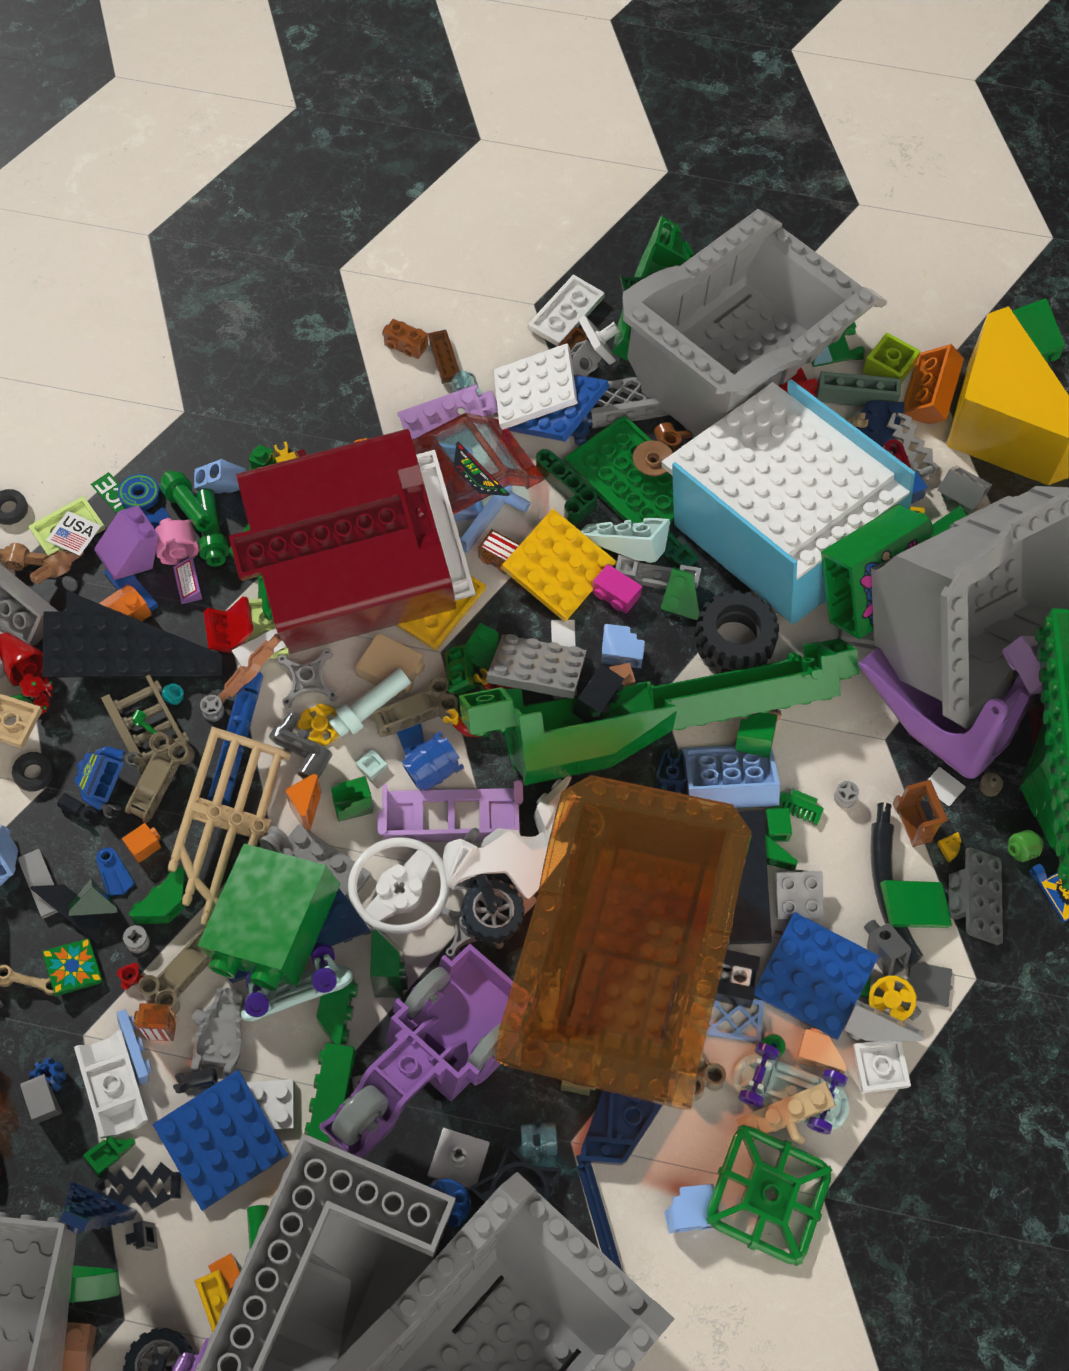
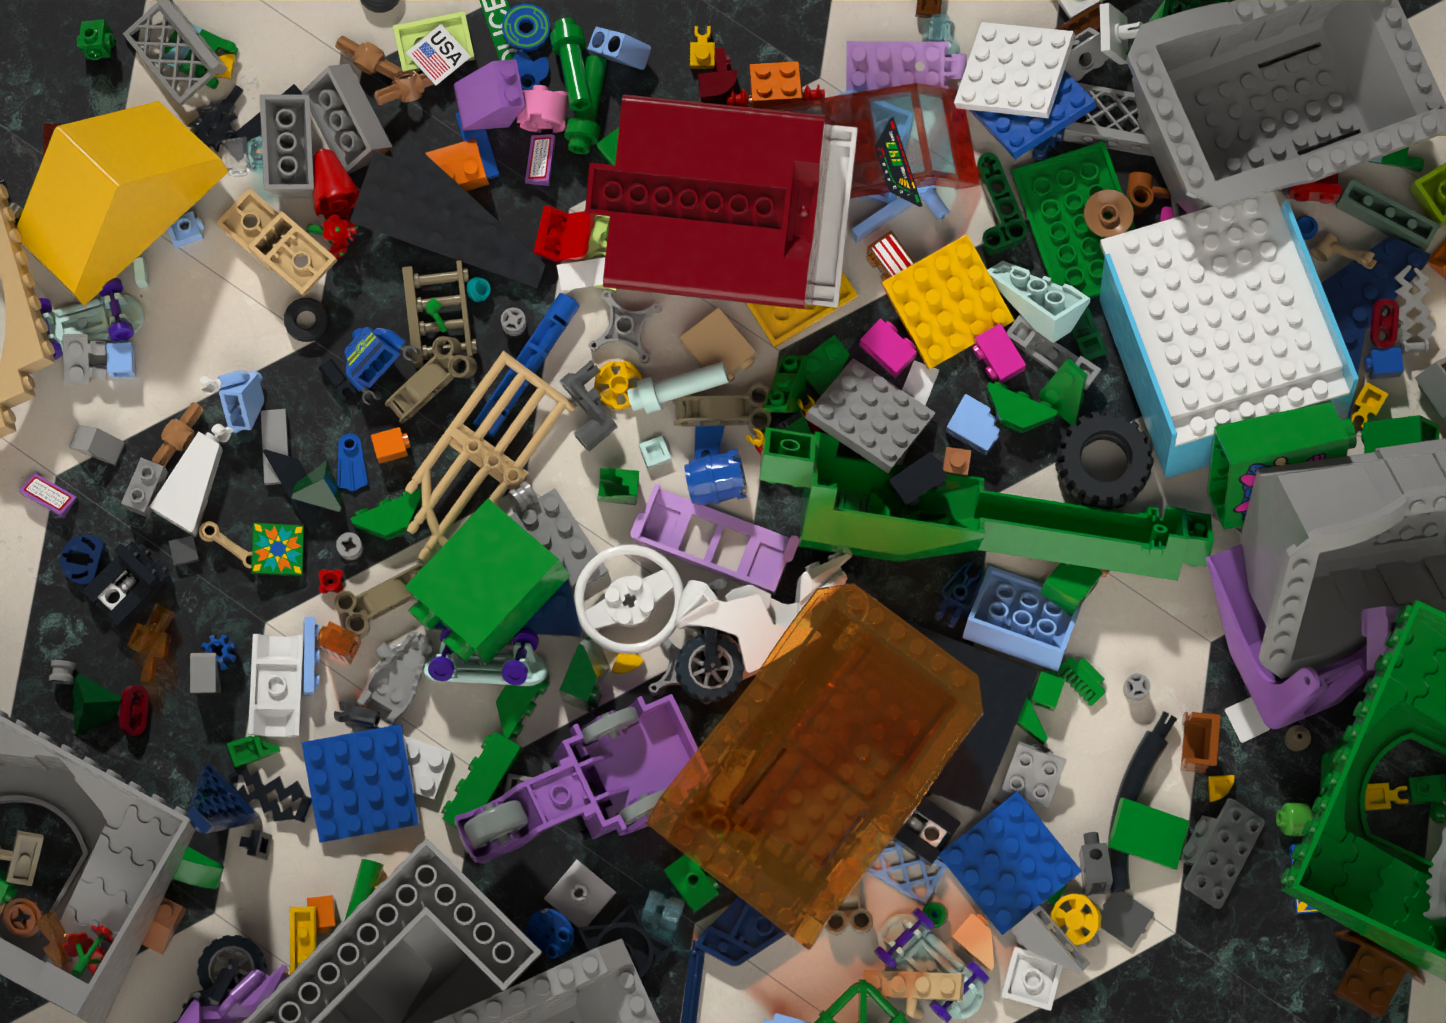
camera: 25 degrees right, 15 degrees up
(246, 674) = (561, 303): nougat piece -> none
(261, 457) = (673, 43): green brick -> none
(304, 800) = (569, 468): orange slope -> none
(417, 942) = (626, 663): none -> yellow tile
(527, 616) = (888, 347): none -> dark pink brick
(553, 1104) = (692, 883): none -> green brick
(650, 623) = (1017, 409): none -> green slope

